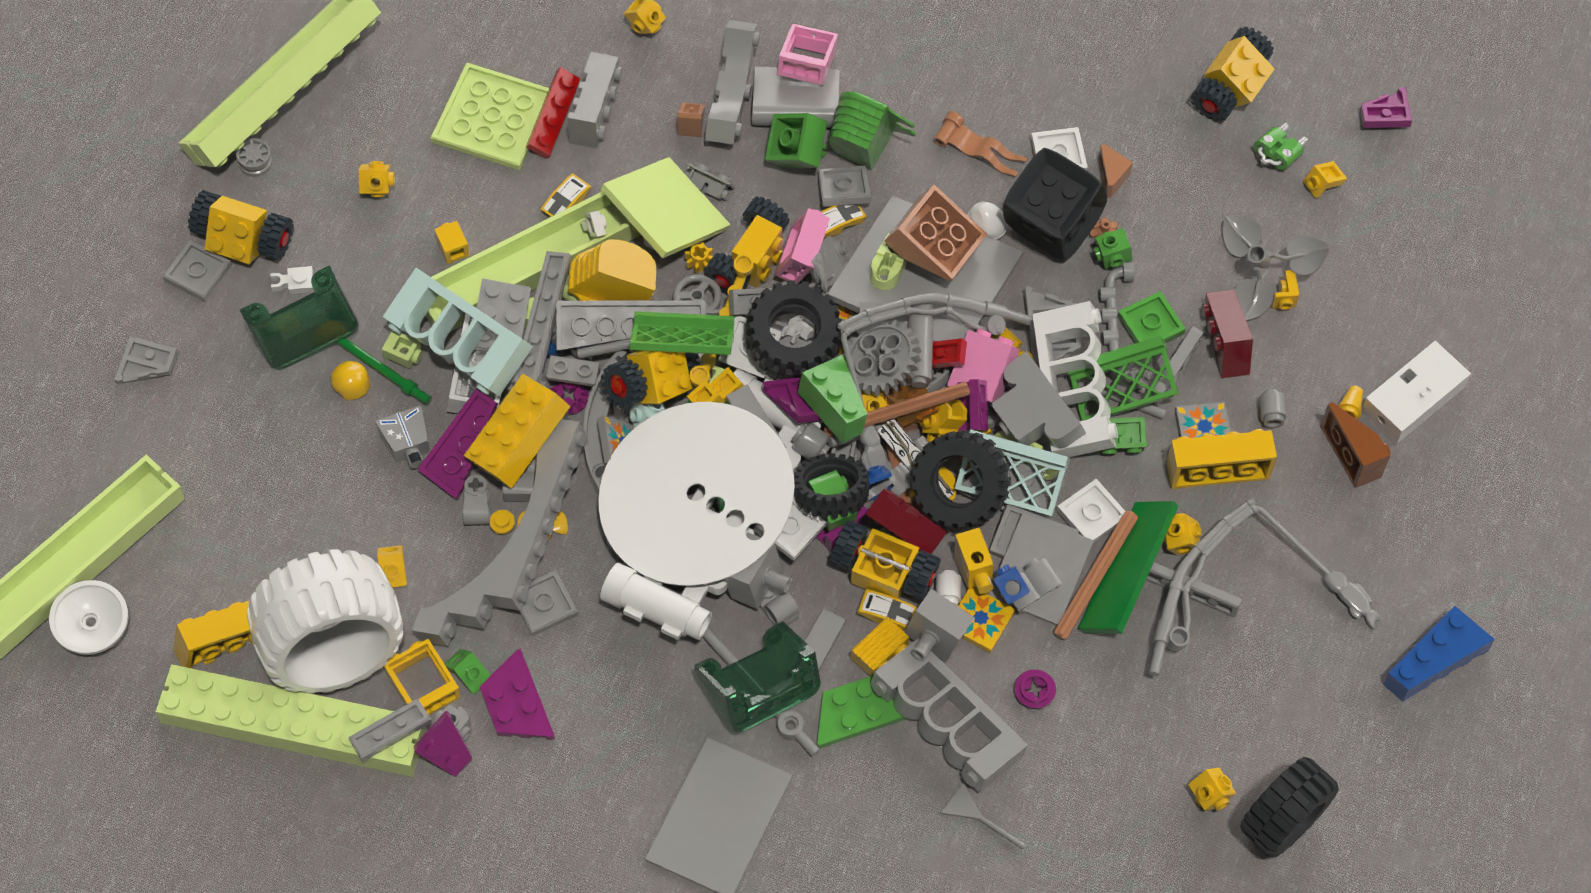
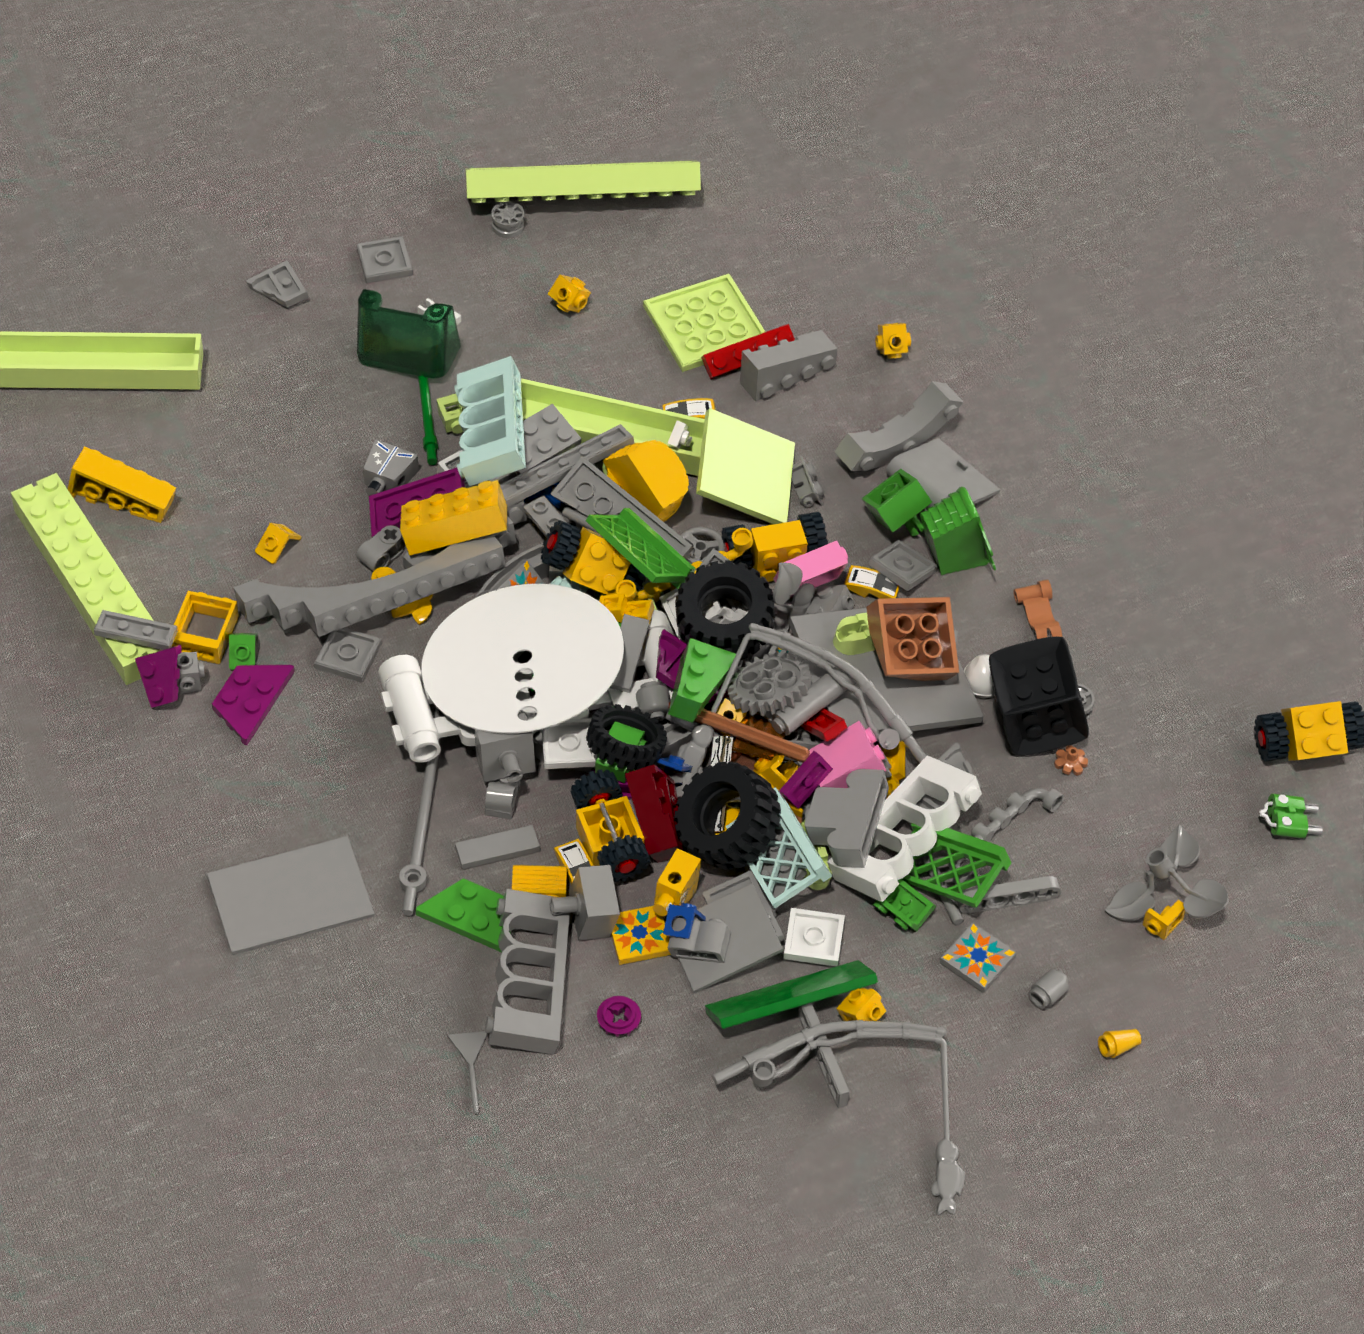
camera: 45 degrees right, 10 degrees down
(85, 603) = (42, 395): white dish -> none
(239, 228) = (438, 252): brick -> none
(325, 621) = (169, 518): white tyre -> none
(350, 380) = (397, 406): yellow hair -> none
(451, 242) = (573, 373): yellow brick -> none
(580, 395) = (522, 534): magenta gear -> none
(690, 119) = (838, 427): nougat slope -> none
(698, 257) = (733, 519): yellow gear -> none
(764, 681) = (420, 828): clear green windscreen -> none
(805, 67) = (961, 454): bright pink window -> none
(949, 585) = (637, 892): white brick -> none
(1063, 141) = (1104, 675): white plate -> none
(1095, 575) = (761, 979): nougat axle -> none
(1113, 248) = (1058, 772): bright green brick -> none
(1114, 169) = (1128, 724): nougat slope -> none
(1151, 319) = (1030, 848): bright green plate -> none
(1212, 789) = (661, 1200): yellow brick -> none
(1221, 459) = (956, 983): yellow brick -> none
(1229, 333) = (1077, 904): dark red wedge -> none
(1289, 807) = (692, 1256): black tyre -> none
(1323, 177) = (1301, 866): yellow bracket -> none
(1355, 445) = (1077, 1078): dark orange slope -> none
(1415, 392) = (1183, 1077): white brick -> none
(1443, 649) = (961, 1273): blue wedge -> none

